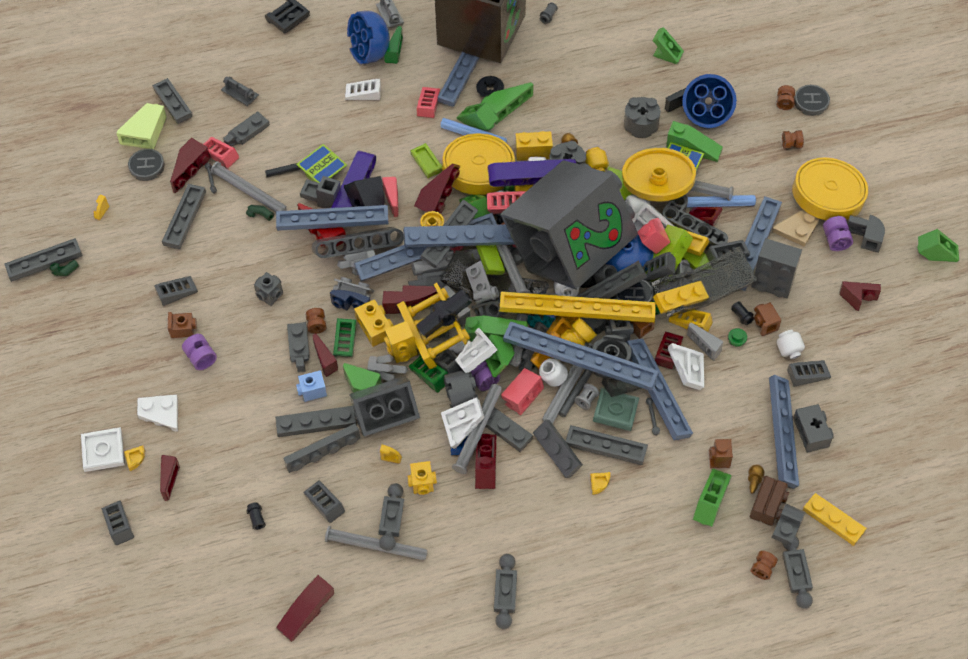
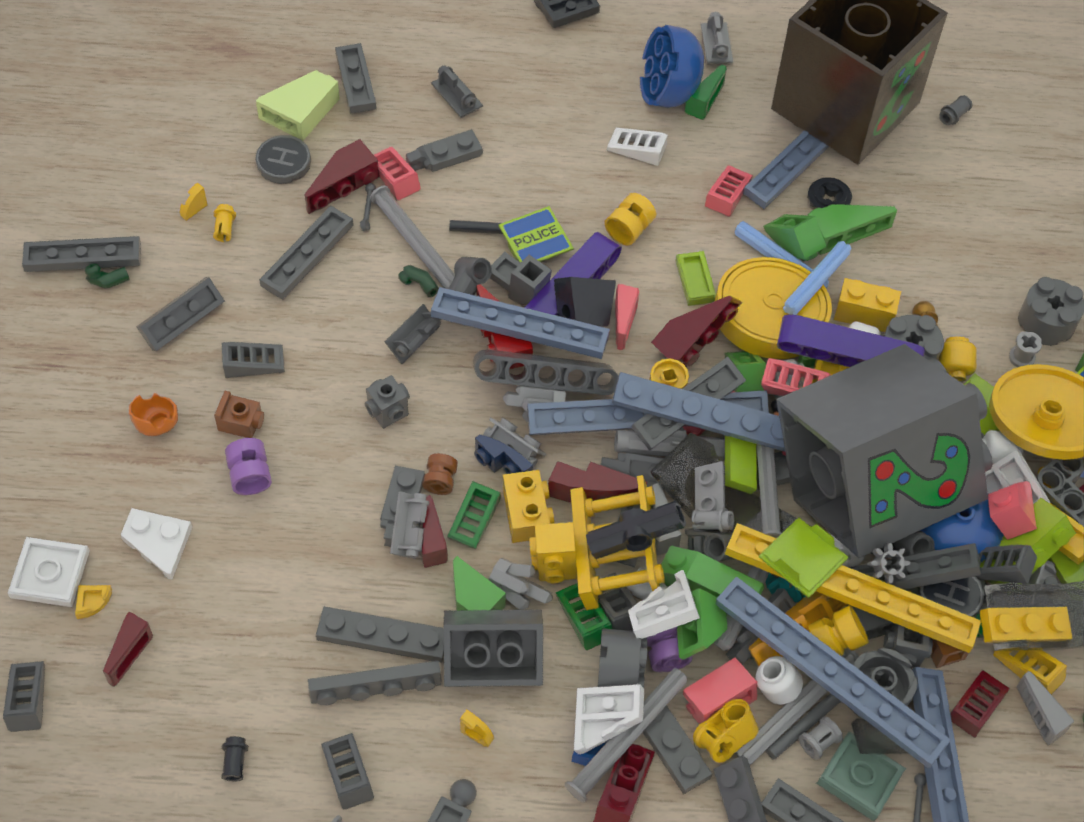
camera: 15 degrees right, 0 degrees up
(120, 276) = (180, 314): none -> dark grey plate
(124, 212) = (223, 224): none -> yellow pin
(129, 340) = (153, 415): none -> orange hair
(268, 244) = (412, 333): none -> dark grey hinge
(290, 198) = (469, 273): none -> dark grey piece
(307, 347) = (408, 518): none -> light grey hinge
(311, 386) = (395, 576): light blue brick -> none
(375, 137) = (630, 219): none -> yellow wheel
(421, 478) = (510, 787): yellow brick -> none
(499, 138) = (817, 278): none -> light blue axle
(534, 408) = (728, 729): none -> yellow piece
(545, 297) = (804, 556): none -> lime piece
(588, 286) = (880, 561): none -> light grey gear
(634, 140) = (1026, 347): none -> light grey bush
(689, 365) = (1004, 742): white wing -> none

